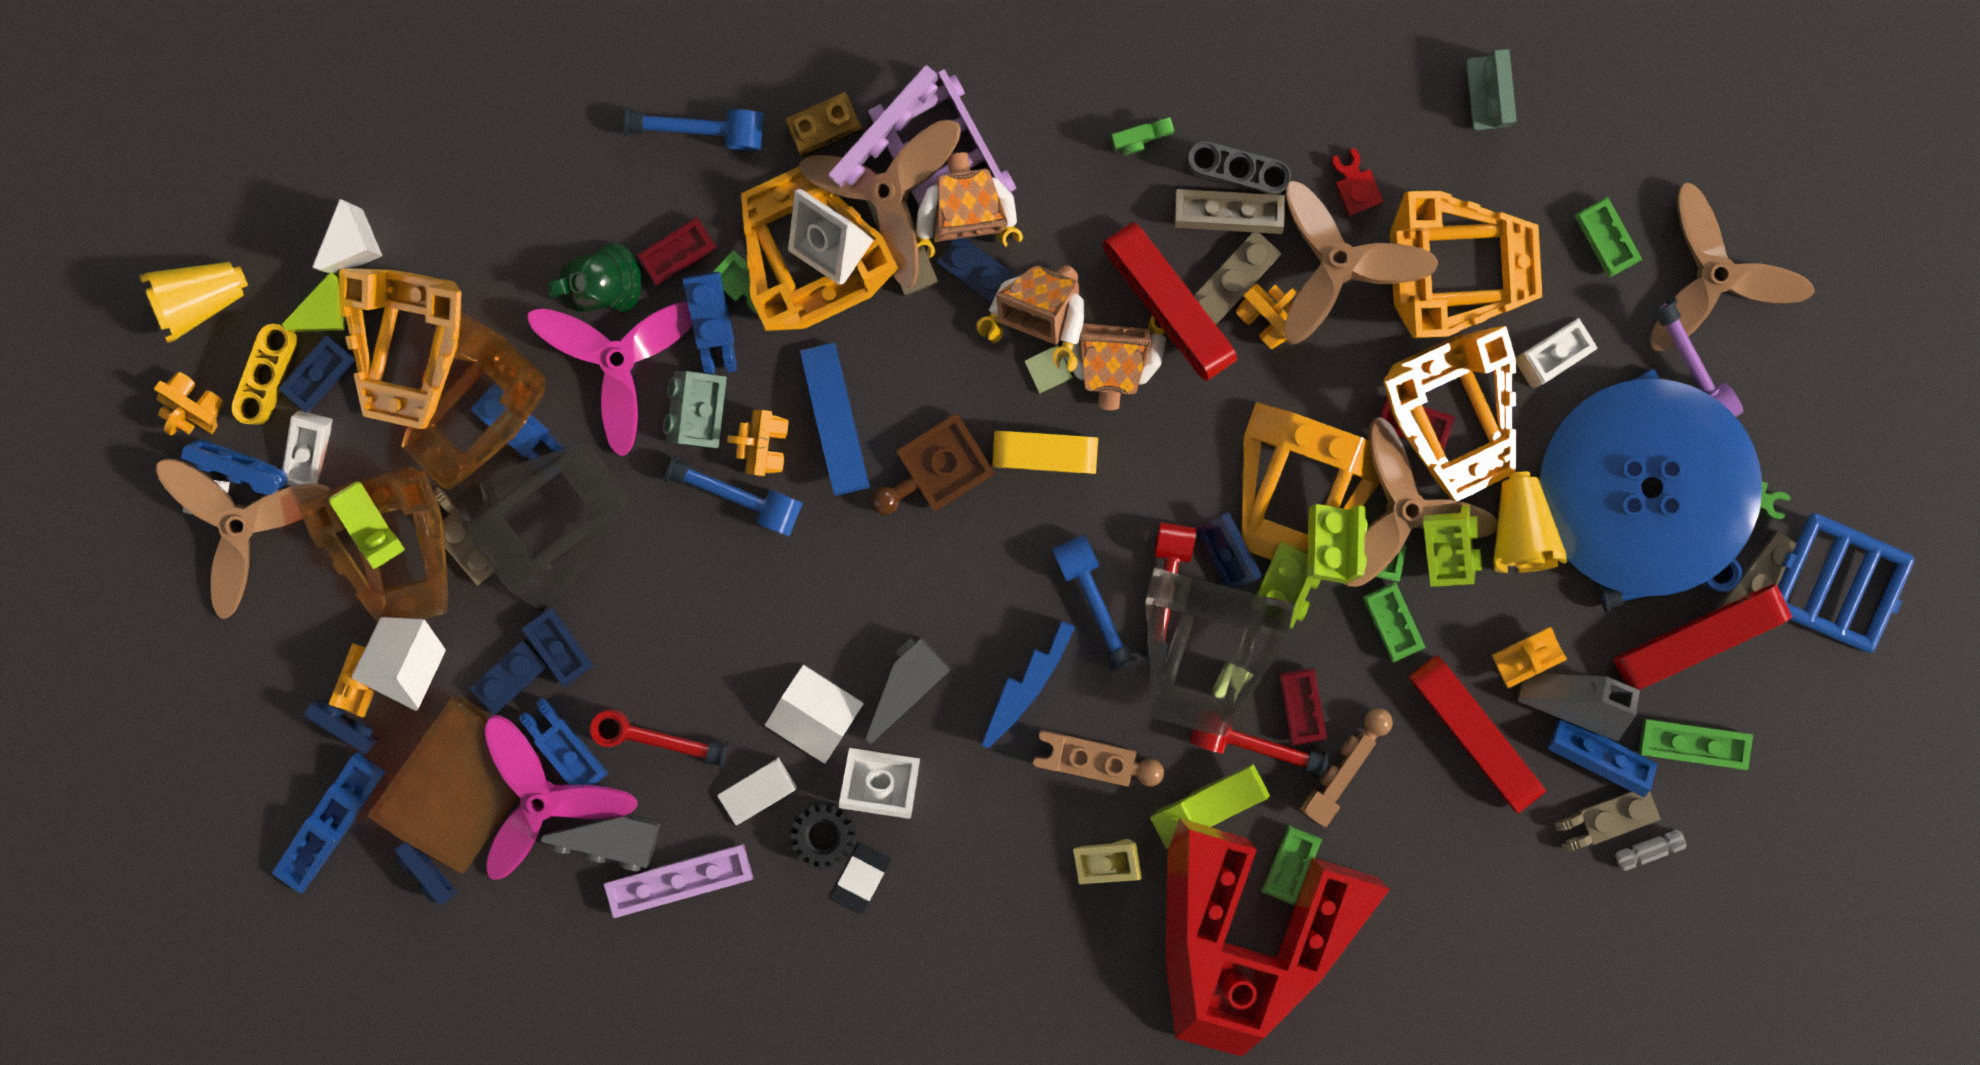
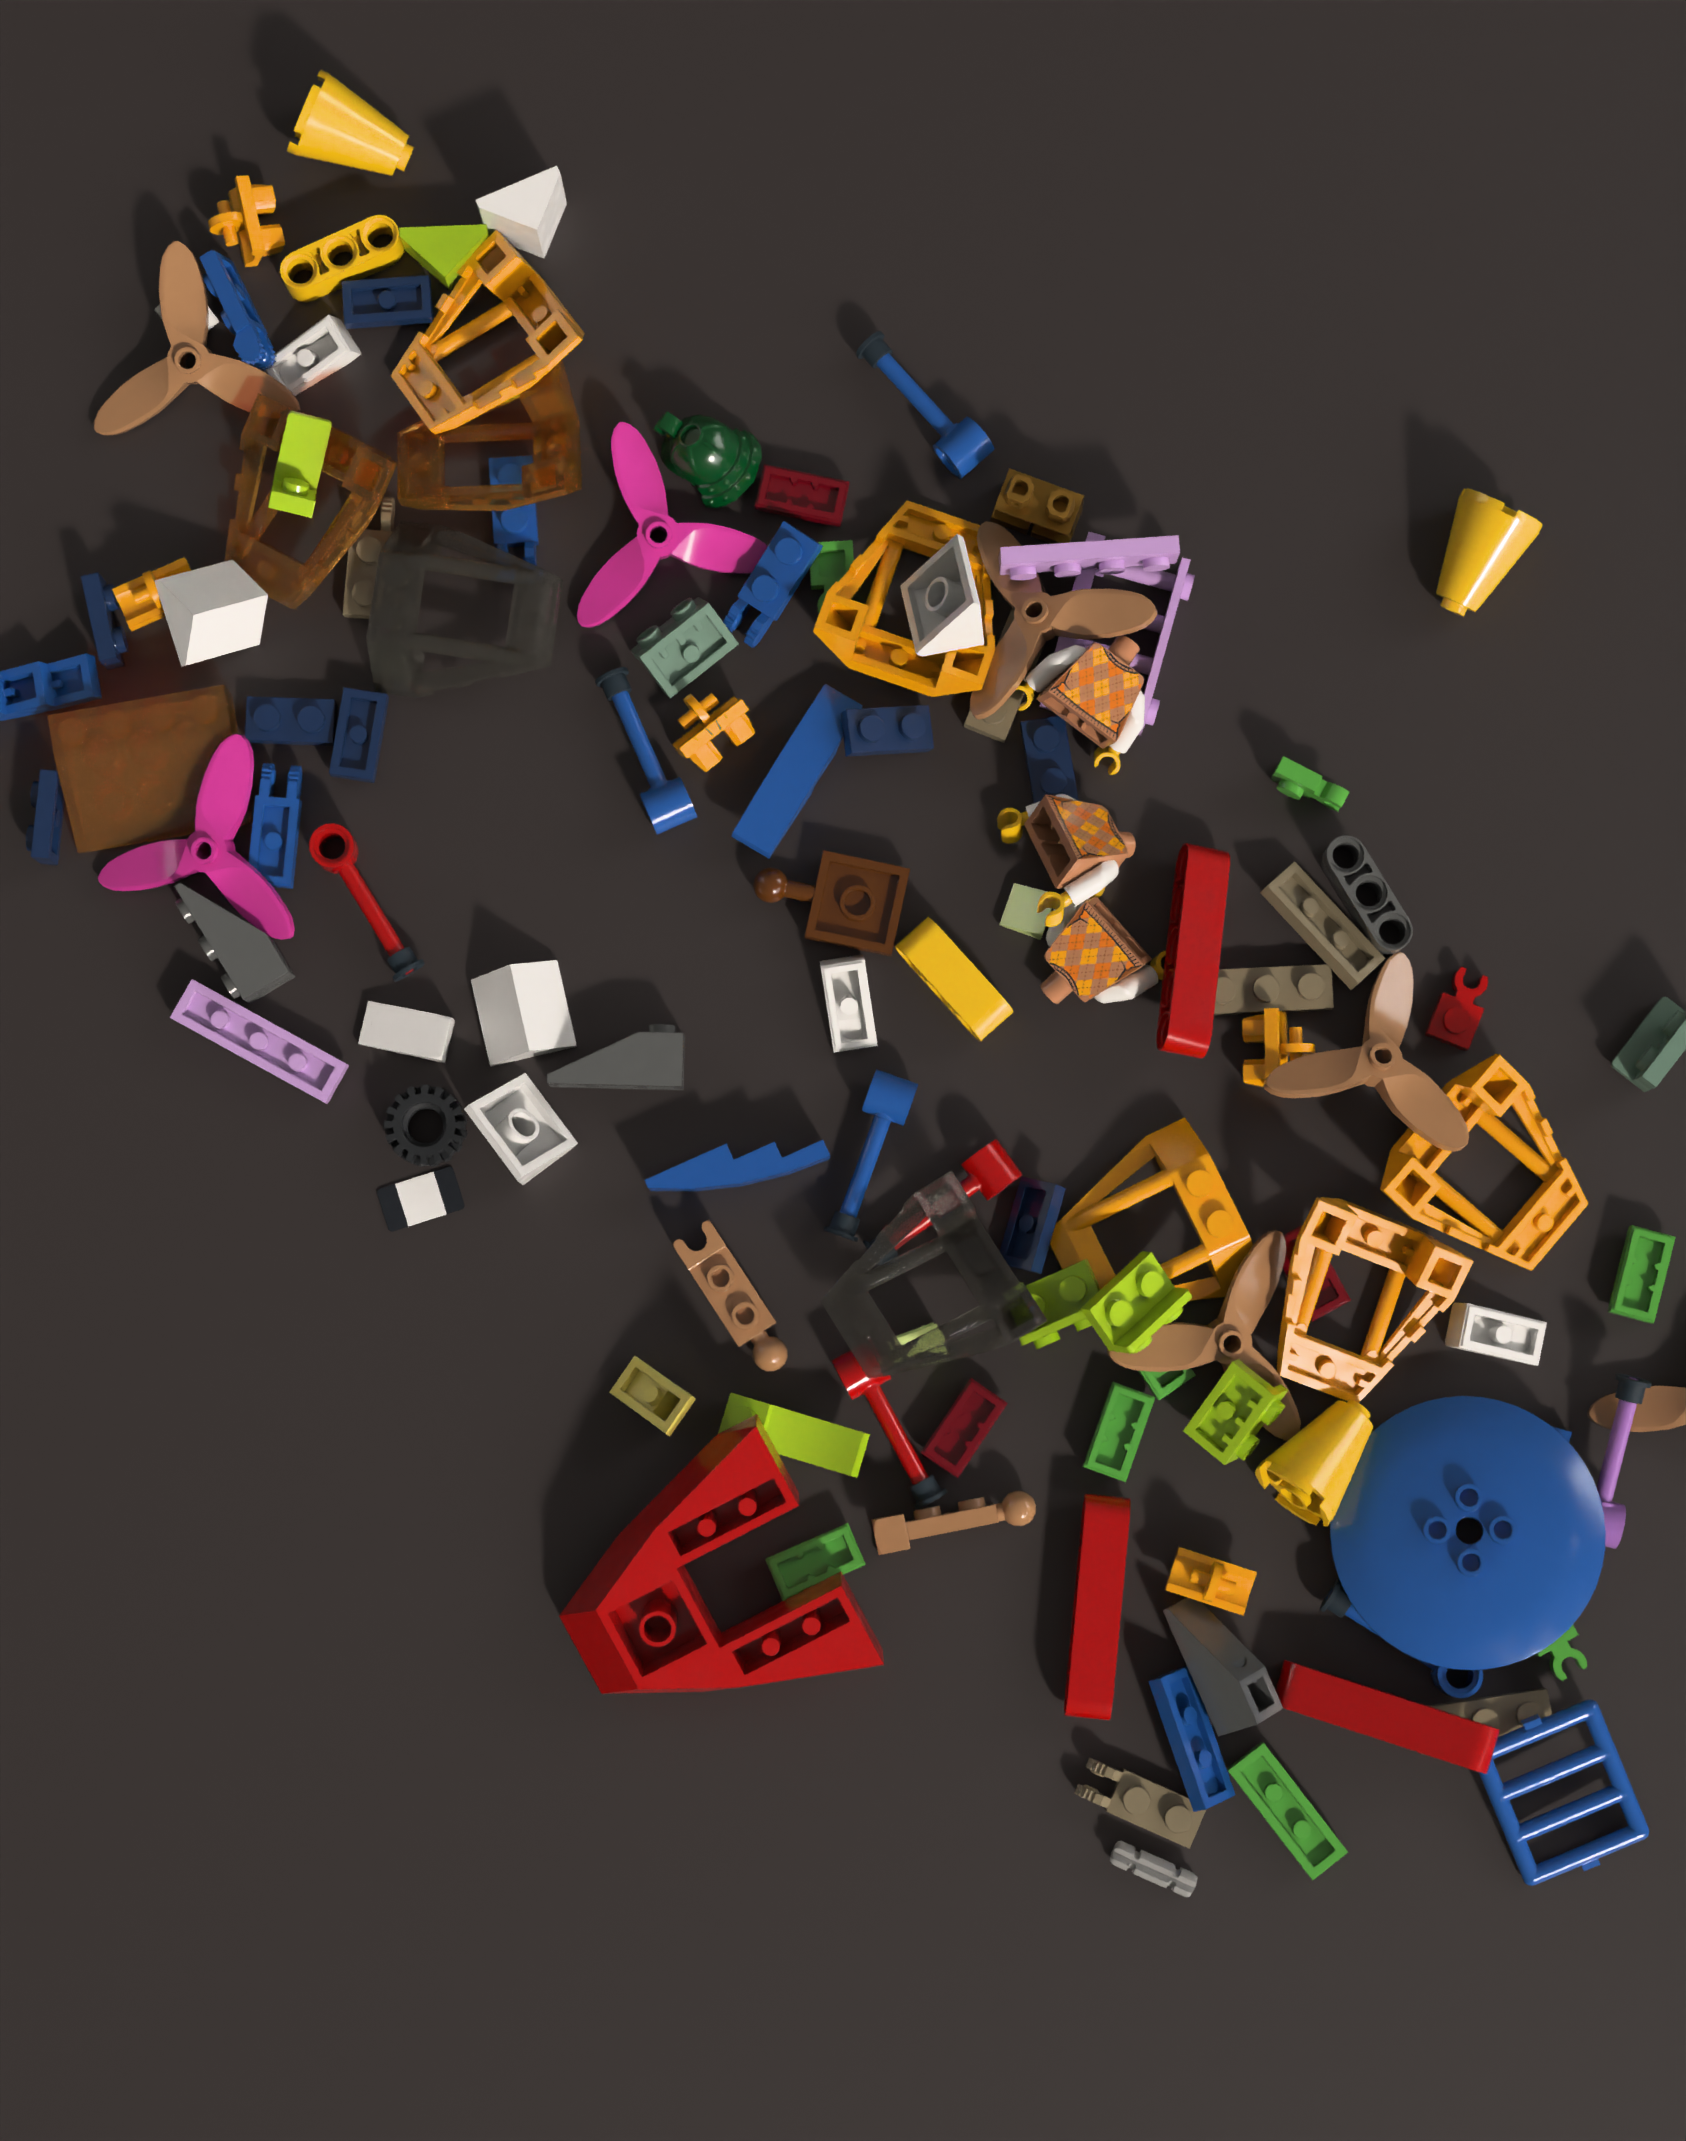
camera: 45 degrees right, 5 degrees down
(864, 343) = (887, 730): none -> dark blue plate
(996, 525) = (848, 1003): none -> white slope

